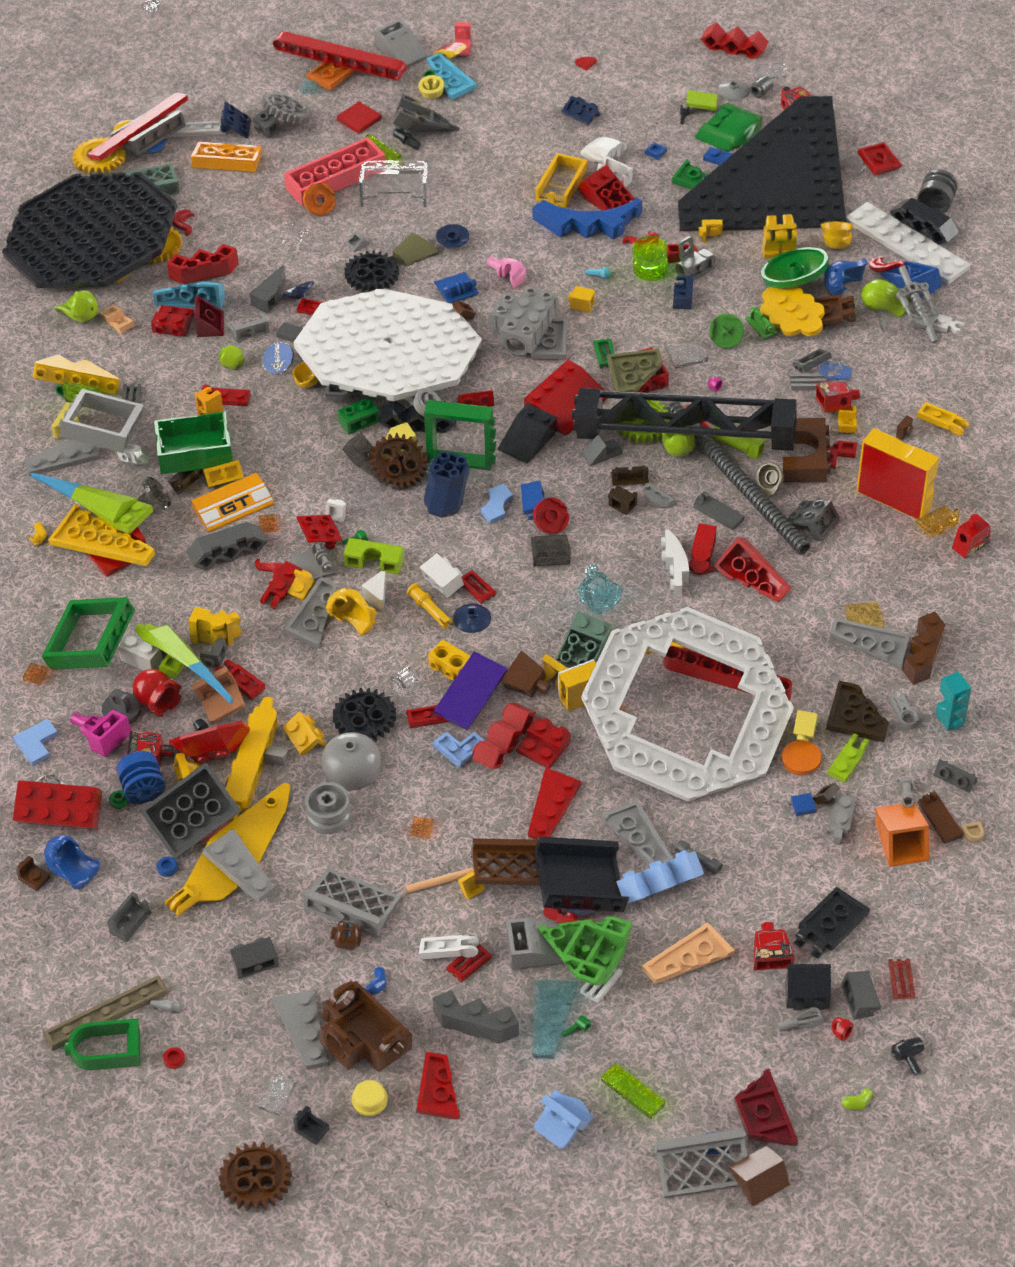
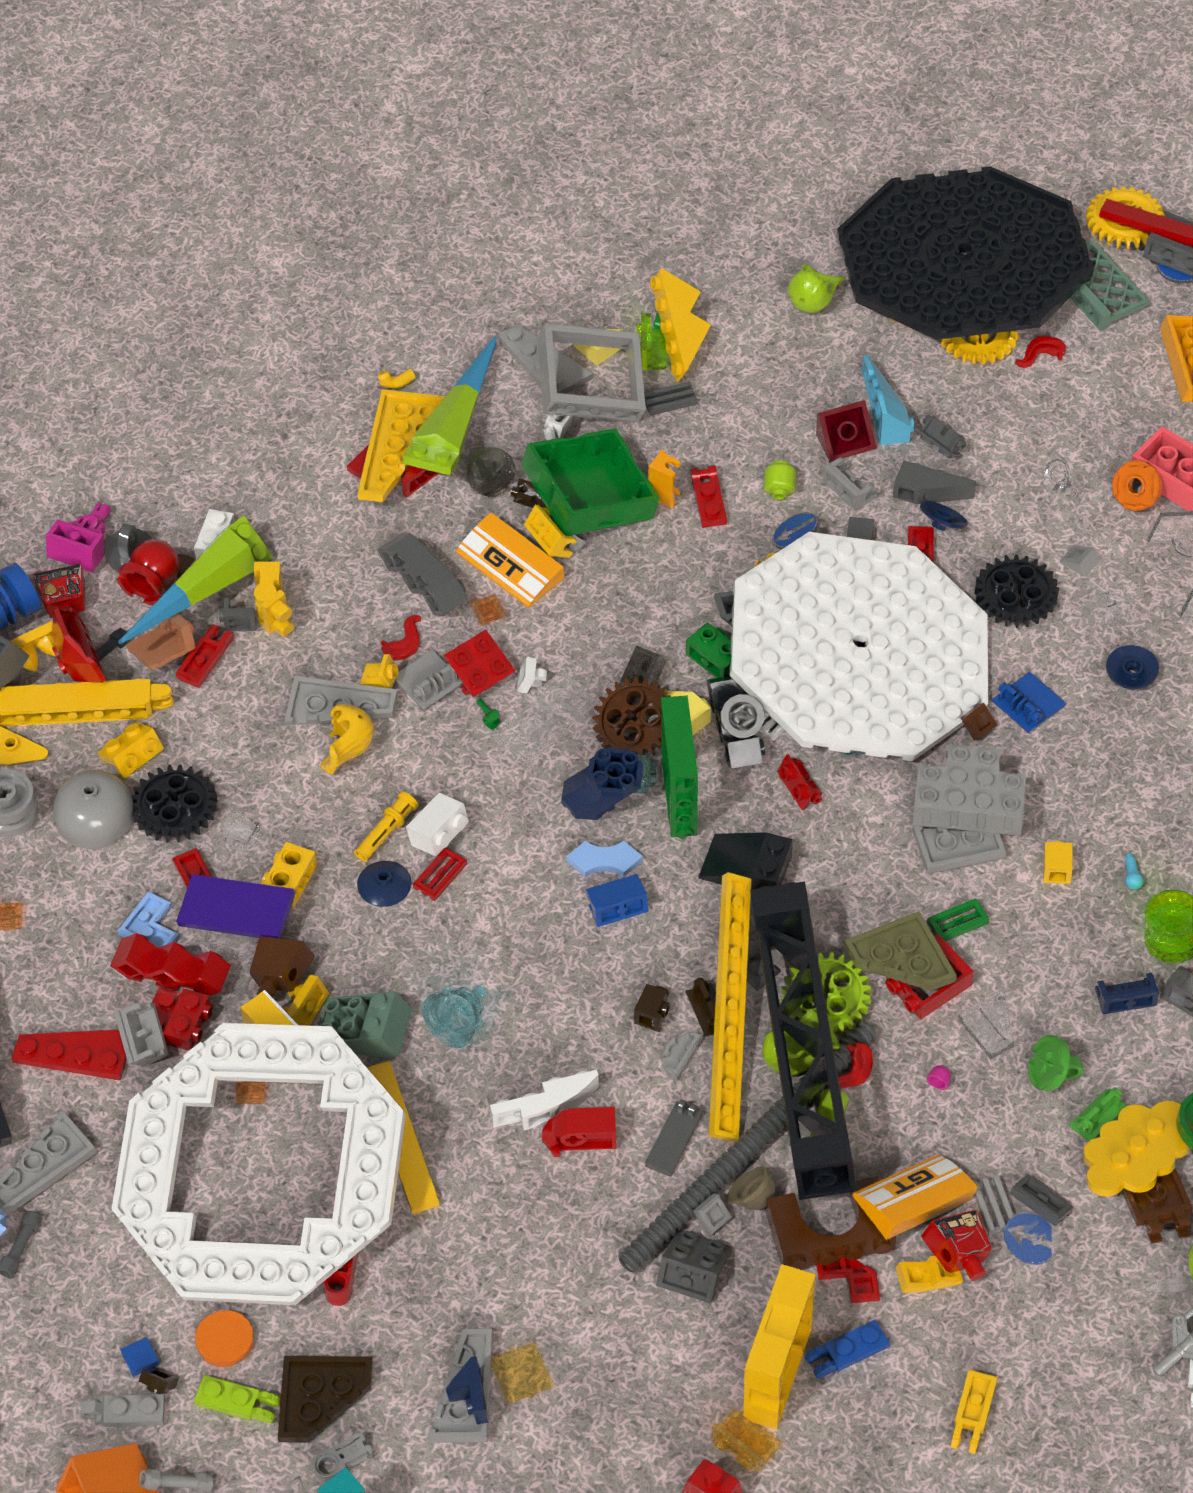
camera: 75 degrees right, 5 degrees up
(31, 741) = (58, 477): light blue tile -> none
(35, 673) = (165, 449): clear orange tile -> none
(117, 319) = (816, 337): light nougat slope -> none
(121, 612) = (226, 494): green window -> none
(172, 320) = (829, 391): red plate -> none
(203, 265) = (944, 395): red brick -> none
(241, 274) = (933, 433): none -> dark grey hinge
(276, 755) = (92, 729): light grey slope -> none
(280, 584) = (373, 651): red hinge -> none
(360, 551) = (457, 757): lime arch -> none
(375, 589) = (393, 759): white slope -> none
(413, 249) = (1084, 628): olive slope -> none
(507, 265) = (1081, 755): bright pink piece -> none
(550, 550) = (528, 942): clear smoke bracket -> none
(551, 515) = (587, 925): red tile -> none
(557, 757) = (141, 1034): none -> light grey hinge
(558, 392) = (843, 887): red slope -> none
(647, 458) = (730, 1008): none -> yellow plate
(751, 568) = (573, 1189): red wedge -> none
(780, 501) = (712, 1214): none -> light grey tile
(805, 725) = (272, 1326): light yellow slope -> none
(809, 406) = (915, 1195): none -> light orange slope
(876, 628) = (469, 1386): none -> dark blue slope
(904, 428) = (928, 1357): reddish brown plate -> none
(924, 648) = (464, 1464): reddish brown brick -> none

